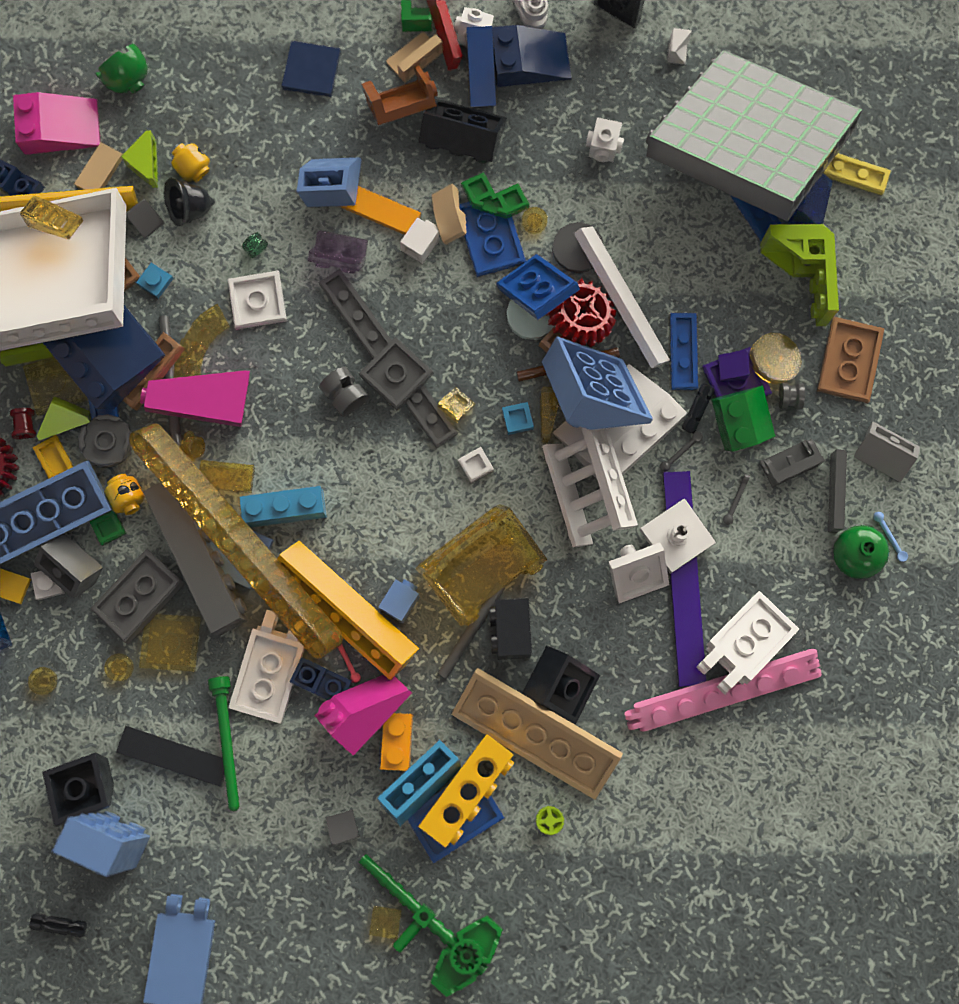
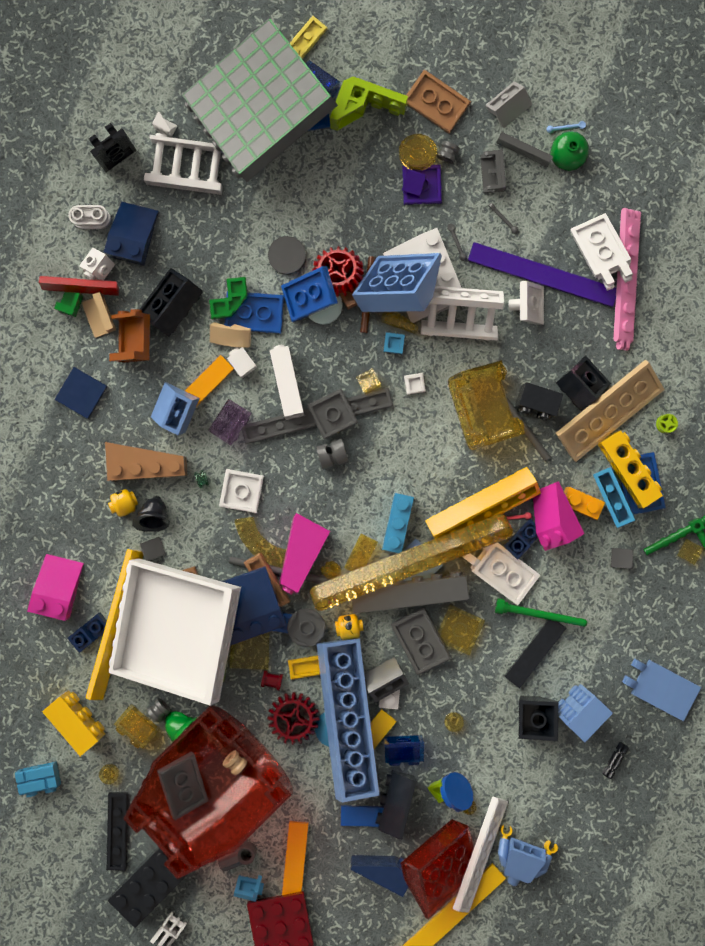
camera: 70 degrees left, 10 degrees up
(37, 209) = (126, 618): clear yellow slope -> none
(62, 417) = (279, 652): lime slope -> none
(99, 168) = (102, 569): tan tile -> none
(107, 527) = (367, 645): green tile -> none
(119, 667) = (463, 668): clear yellow tile -> none
(124, 71) = (36, 526): green cylinder -> none
(142, 158) = (107, 535): lime slope -> none
(154, 280) = (200, 557): dark azure plate -> none
(245, 157) = (137, 463): none -> medium nougat wedge
(400, 600) = (489, 468): medium blue brick -> none
(414, 302) = (286, 382): none -> white brick
(481, 66) = (128, 271): blue tile -> none
(534, 220) = (255, 277): clear yellow tile -> none
(605, 140) = (215, 199): white brick -> none
(616, 82) = (174, 180): none -> white fence
(621, 297) = (336, 239): white tile -> none
(679, 534) = (514, 266): white tile -> none
(683, 351) = (388, 212): blue tile -> none
(698, 408) = (431, 218): black axle -> none
(743, 418) = (453, 191): green slope -> none

